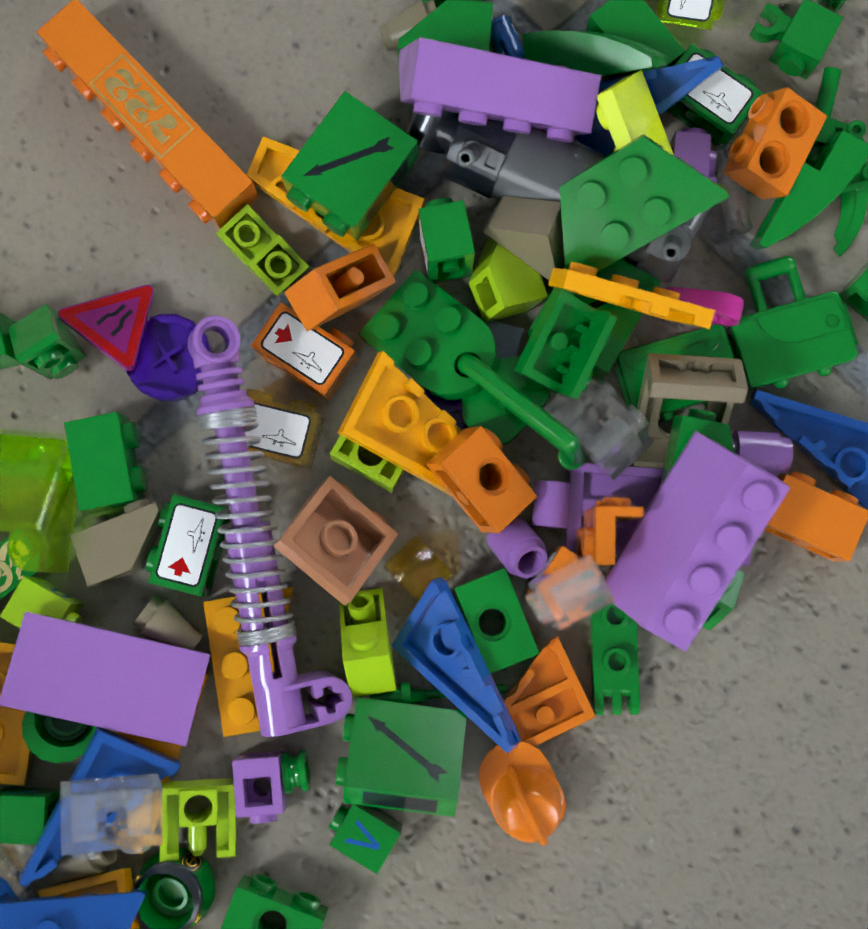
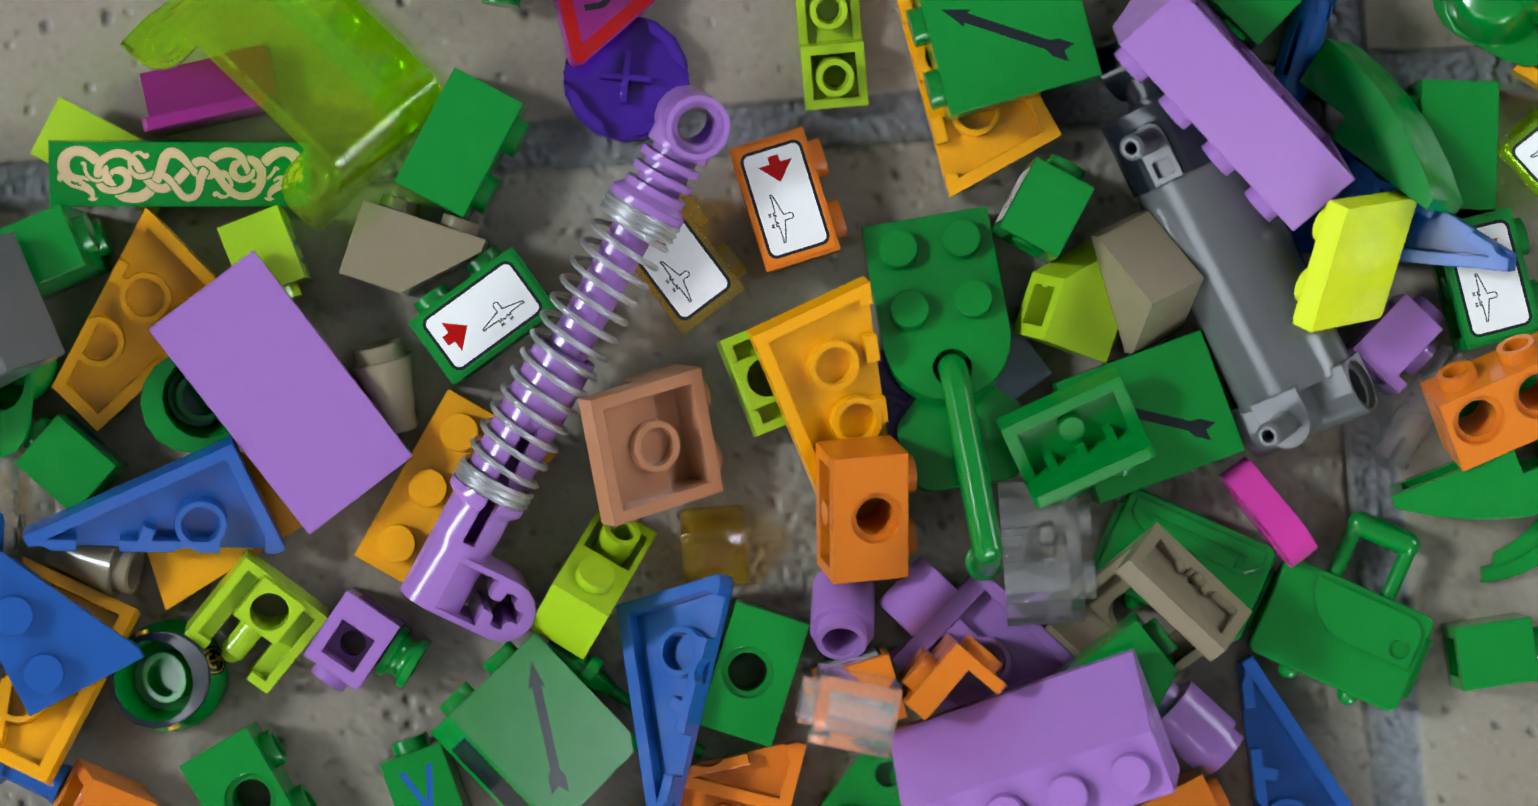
camera: 40 degrees right, 5 degrees up
(85, 812) = (164, 514): clear brick -> none
(339, 286) = (882, 166): orange brick -> none
(625, 293) = (1149, 389): light orange wing -> none
(630, 202) = (1267, 343): green wing -> none

